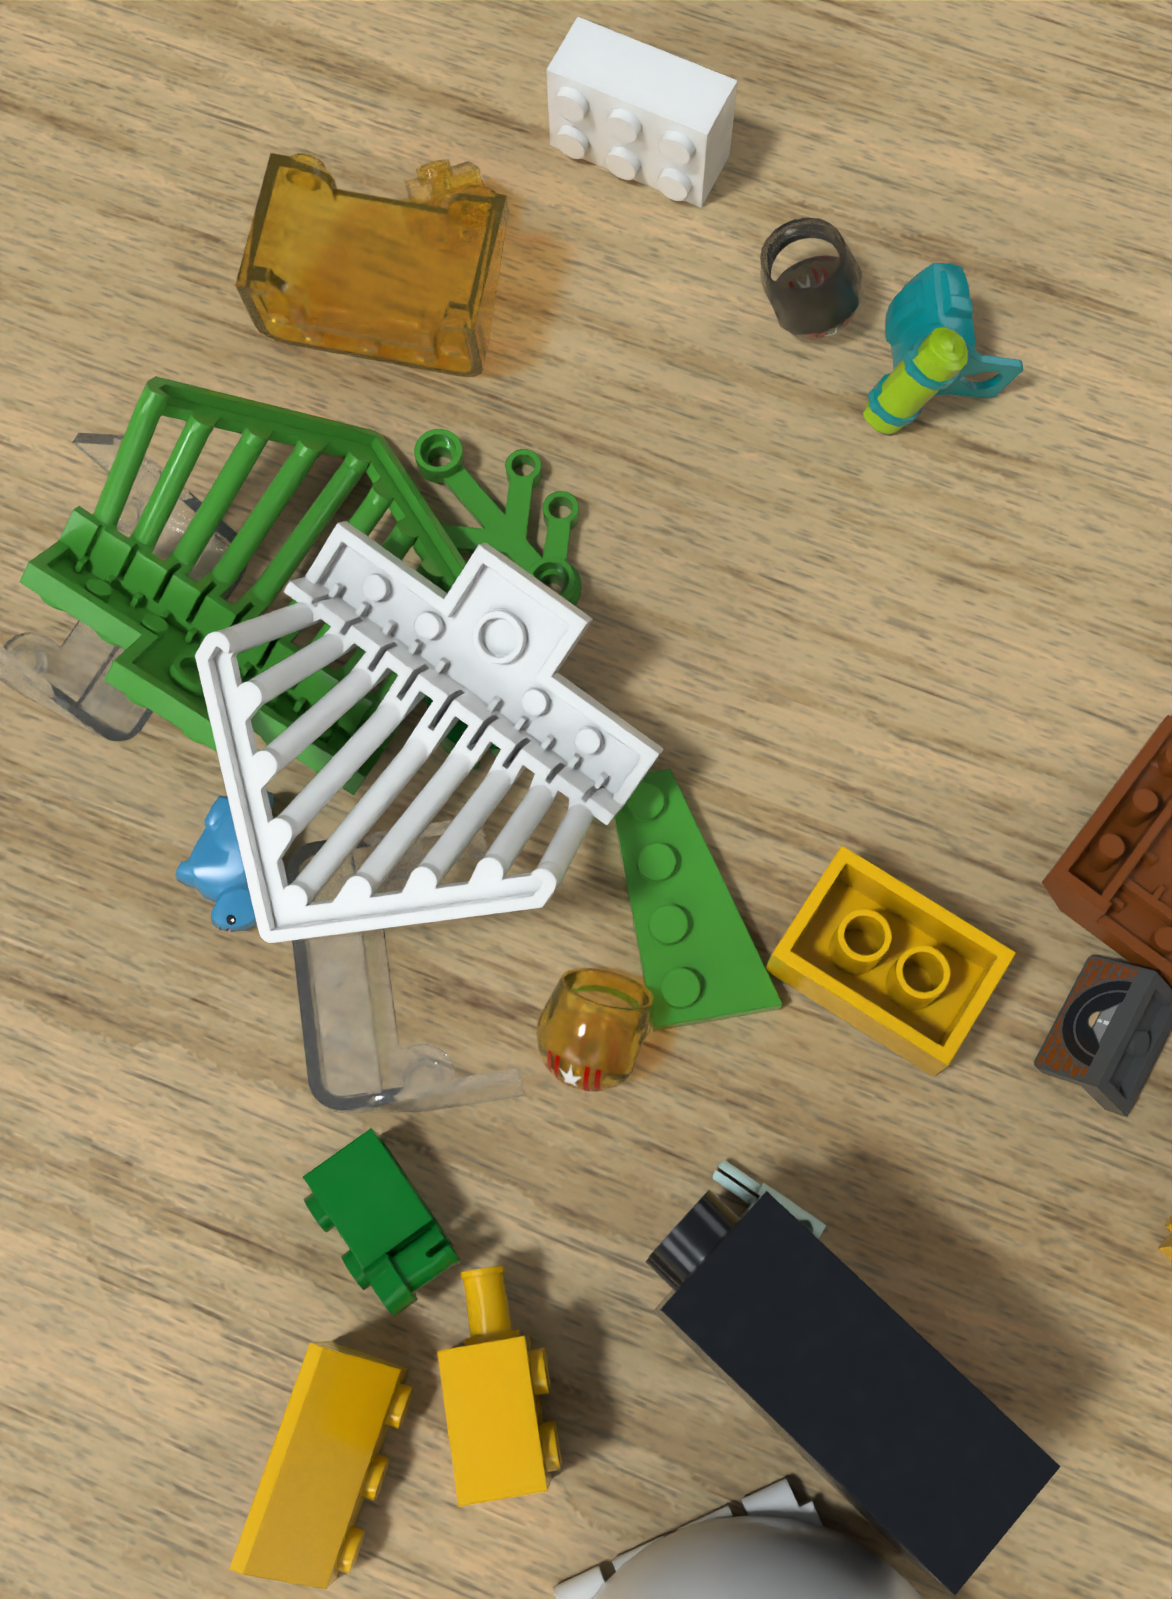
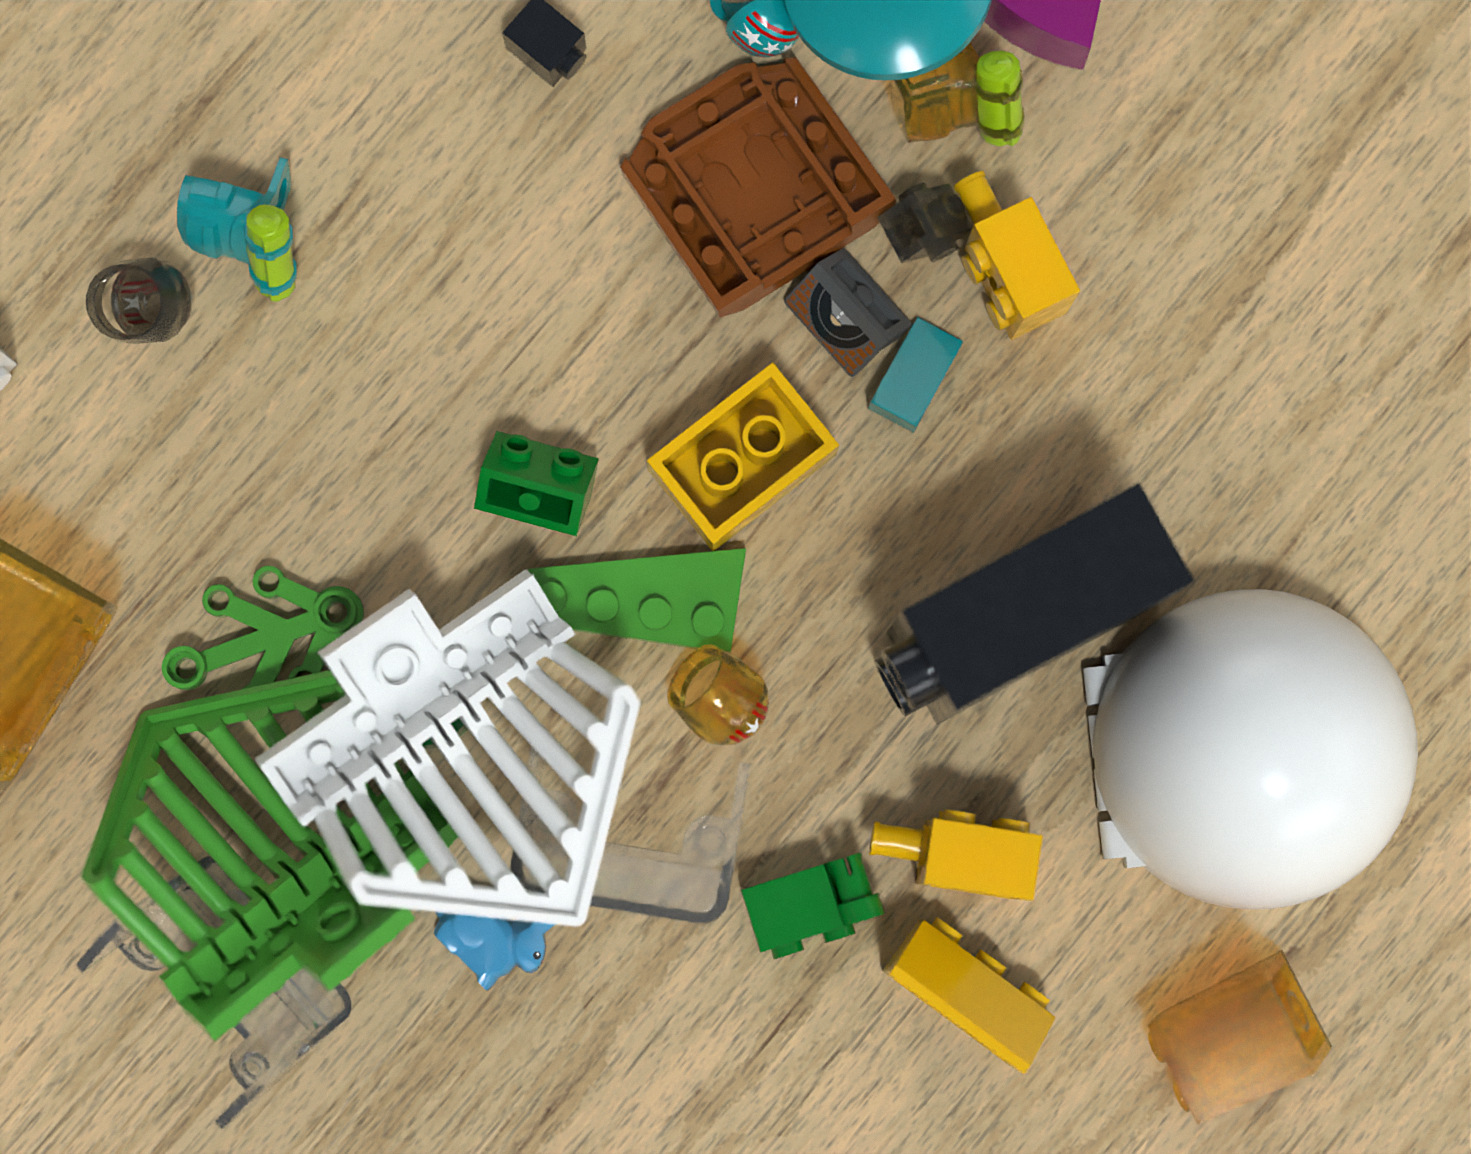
camera: 80 degrees left, 10 degrees up
(769, 740) = (536, 483): none -> green brick
(814, 1225) = (903, 598): light aqua piece -> none
(1066, 1140) = (915, 375): none -> teal slope

